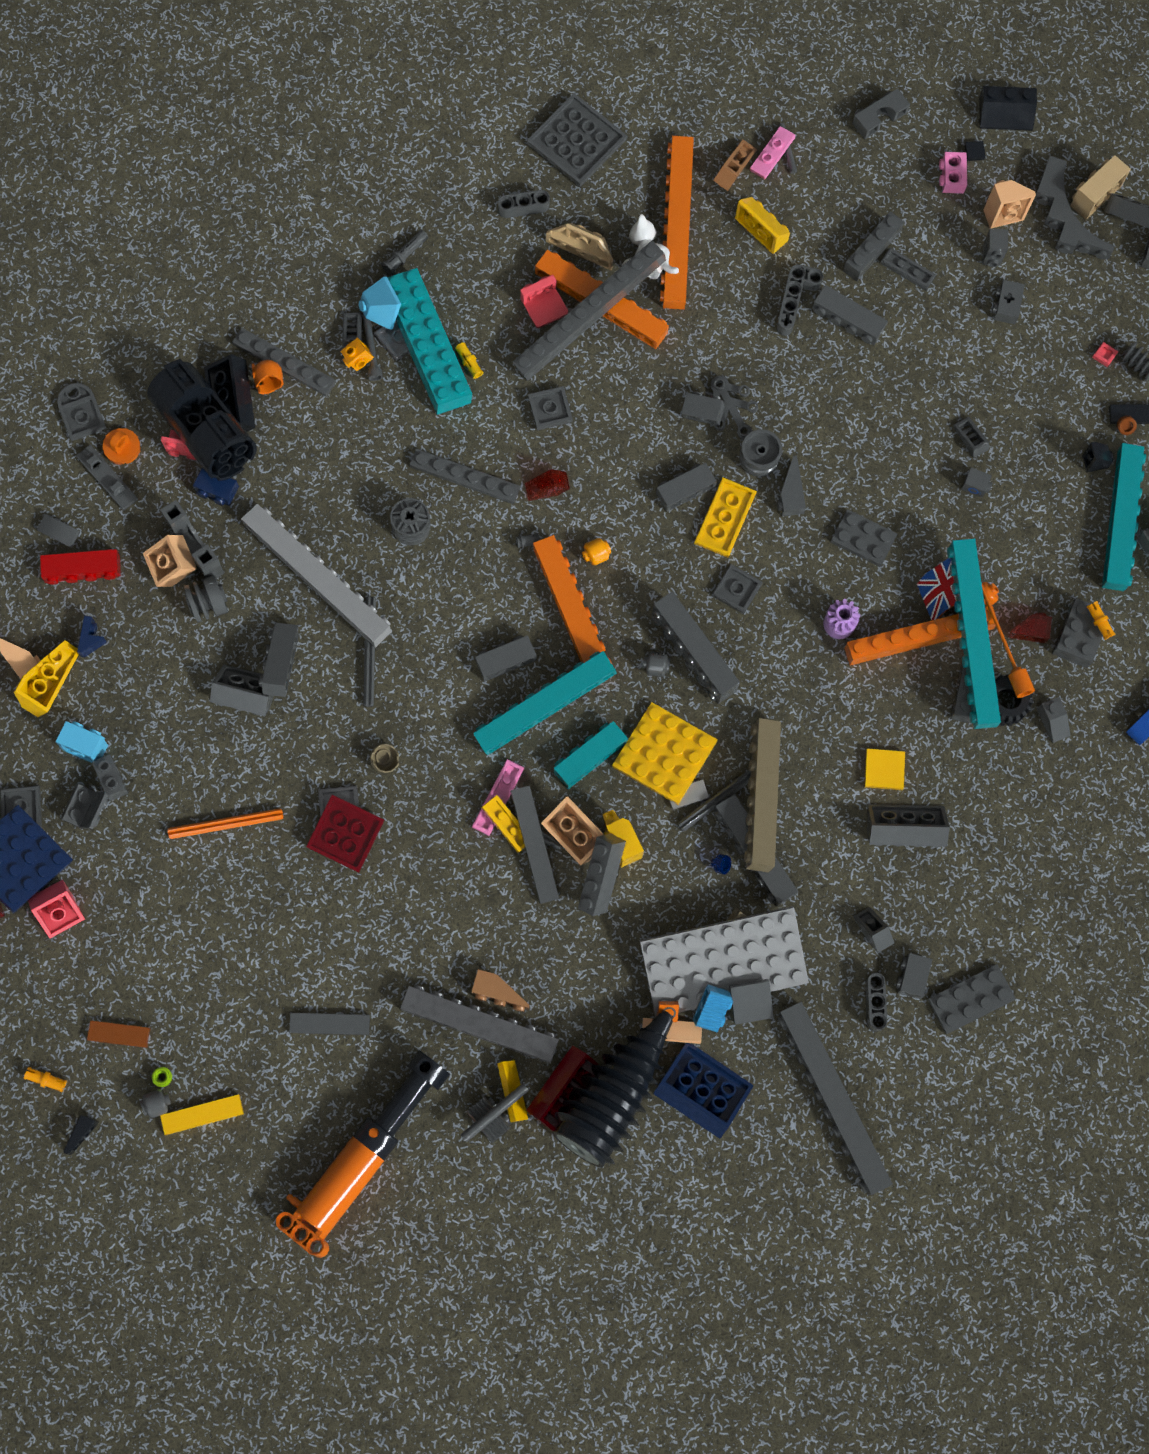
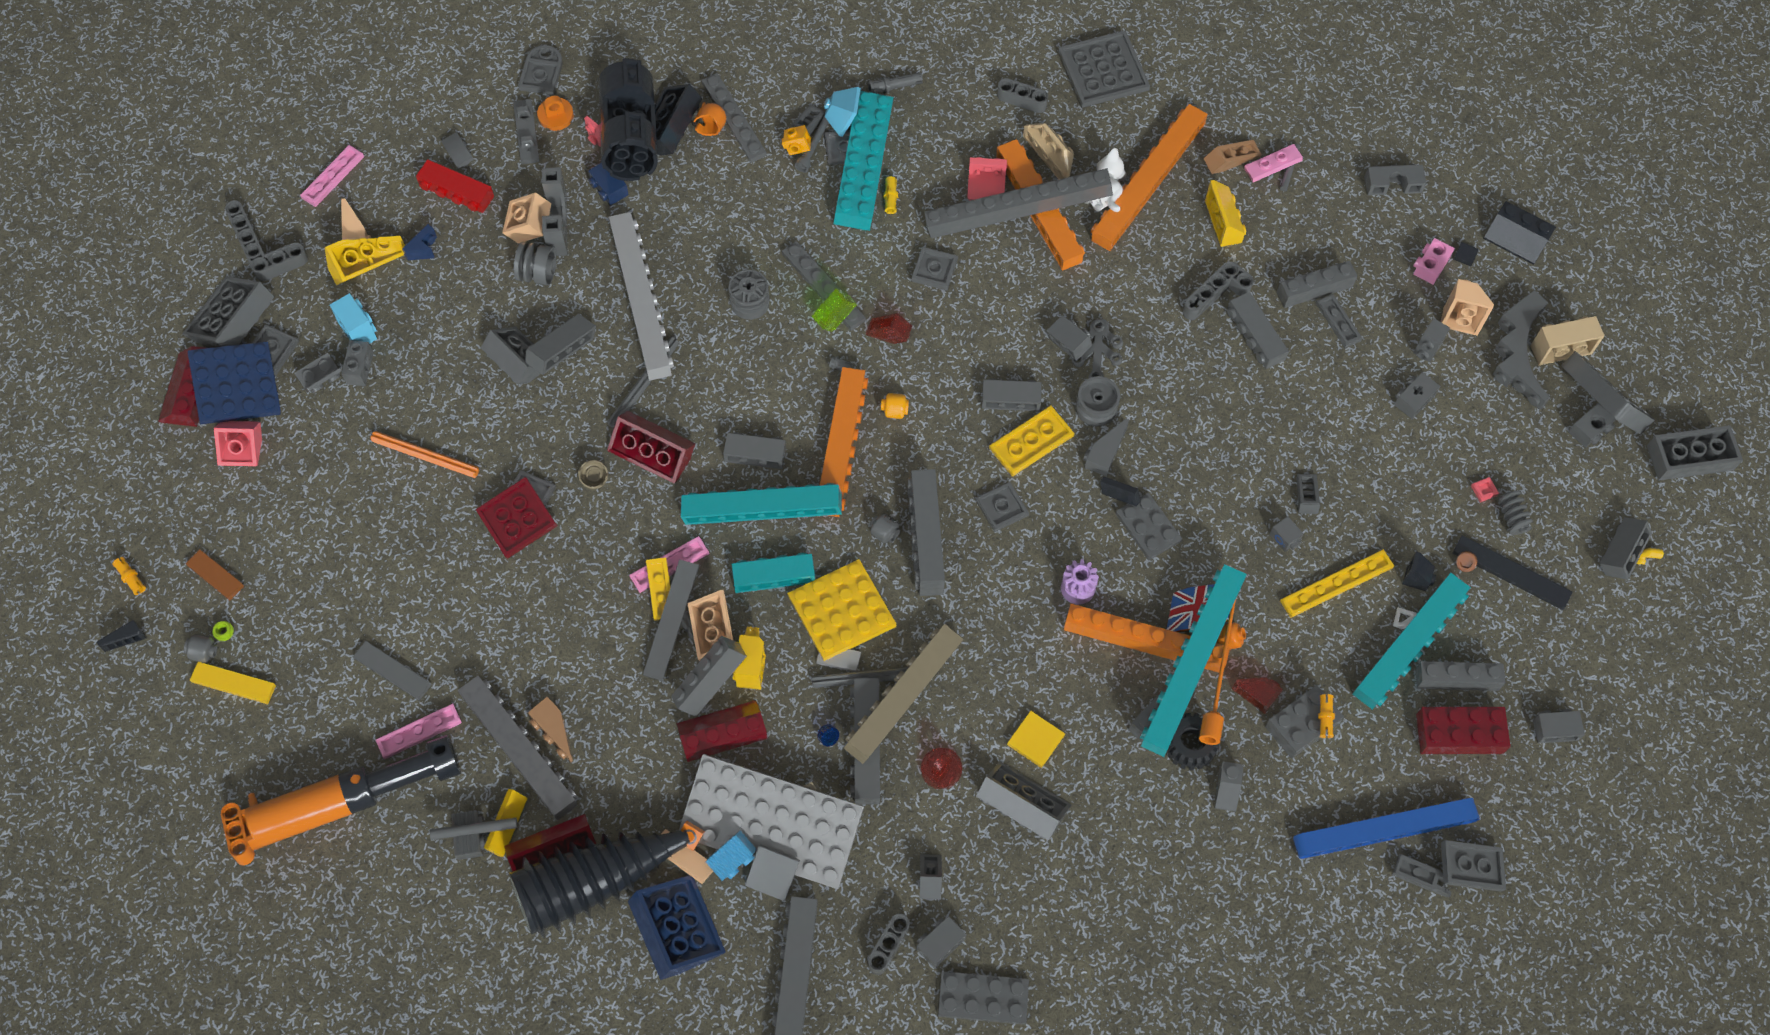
camera: 35 degrees right, 10 degrees down
(387, 1060) = (418, 731): none -> bright pink tile
(415, 705) = (650, 446): none -> dark red slope
(493, 495) = (834, 310): none -> clear neon green piece
(634, 910) = (722, 730): none -> dark red slope
(826, 837) = (941, 768): none -> clear red tile
(827, 521) = (1120, 491): none -> black tile
(1037, 501) = (1336, 583): none -> yellow tile
(1107, 506) = (1404, 624): none -> white tile

